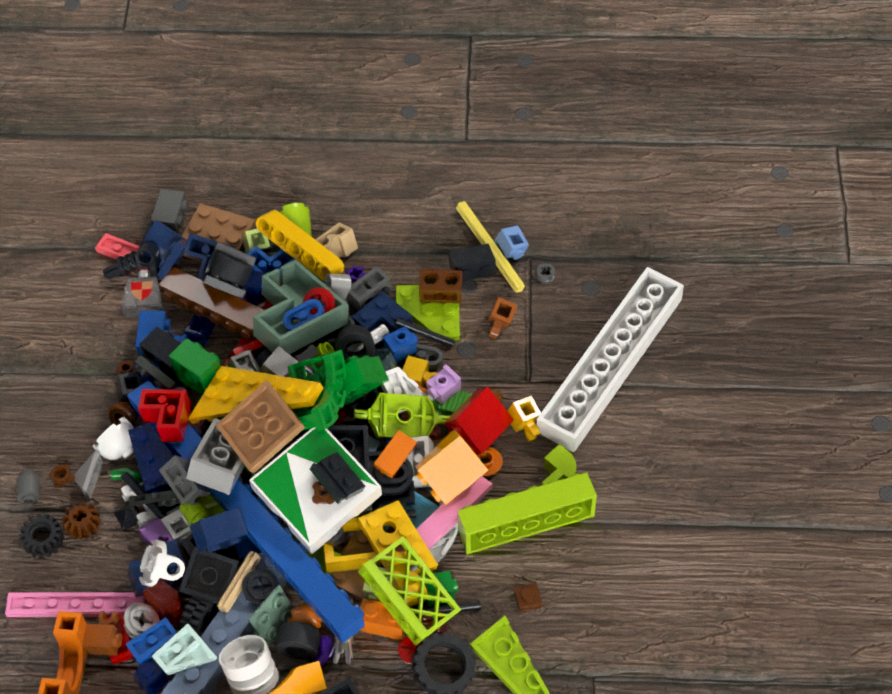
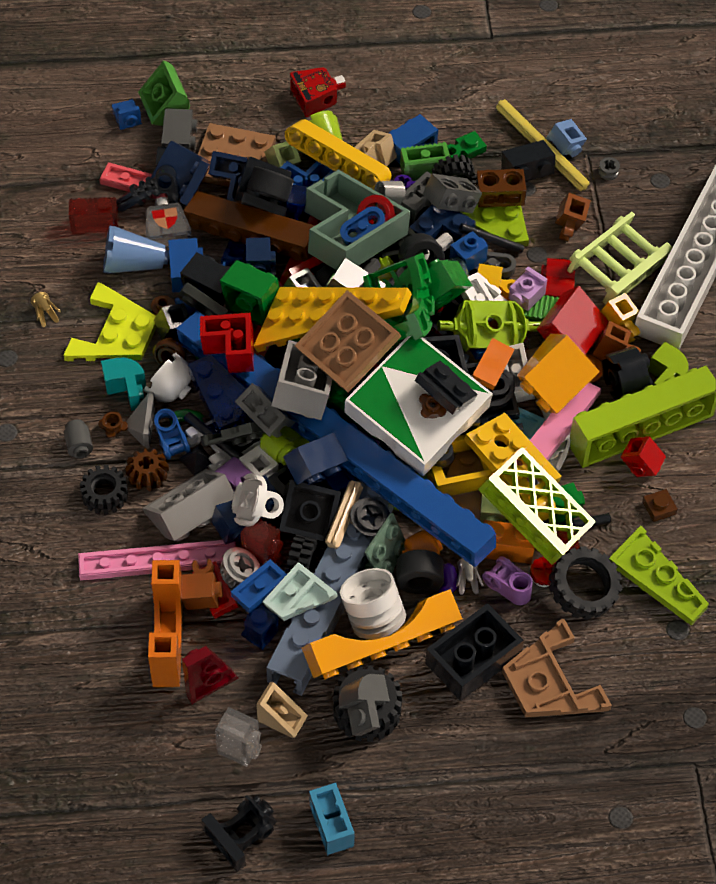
camera: 10 degrees left, 0 degrees up
(23, 359) = (42, 303): none -> pearl gold piece
(80, 433) = (123, 376): none -> teal brick
(82, 281) = (93, 214): none -> clear red brick
(88, 393) = (124, 333): none -> neon yellow wing
(107, 319) = (132, 252): none -> medium blue cone
(107, 495) = (171, 438): none -> blue piece
(111, 557) = (189, 504): none -> light grey slope
(130, 189) = (126, 114): none -> blue bracket
(164, 173) = (163, 92): none -> bright green brick
(214, 337) = (260, 255): none -> dark blue brick
(299, 179) = (315, 89): none -> red torso
(374, 233) = (412, 133): none -> blue brick
(375, 653) = (506, 578): none -> medium lavender piece
(381, 254) = (421, 159): none -> bright green brick
(393, 289) = (452, 193): none -> dark grey brick
(403, 269) = (456, 167): none -> black tyre
(422, 242) = (467, 145): none -> green plate
(478, 373) = (557, 276): none -> red brick
(514, 441) = (612, 339): none -> dark orange brick
(518, 469) = (626, 371): none -> black brick
(519, 551) = (643, 456): none -> red brick
(539, 381) = (628, 278): none -> yellowish green fence

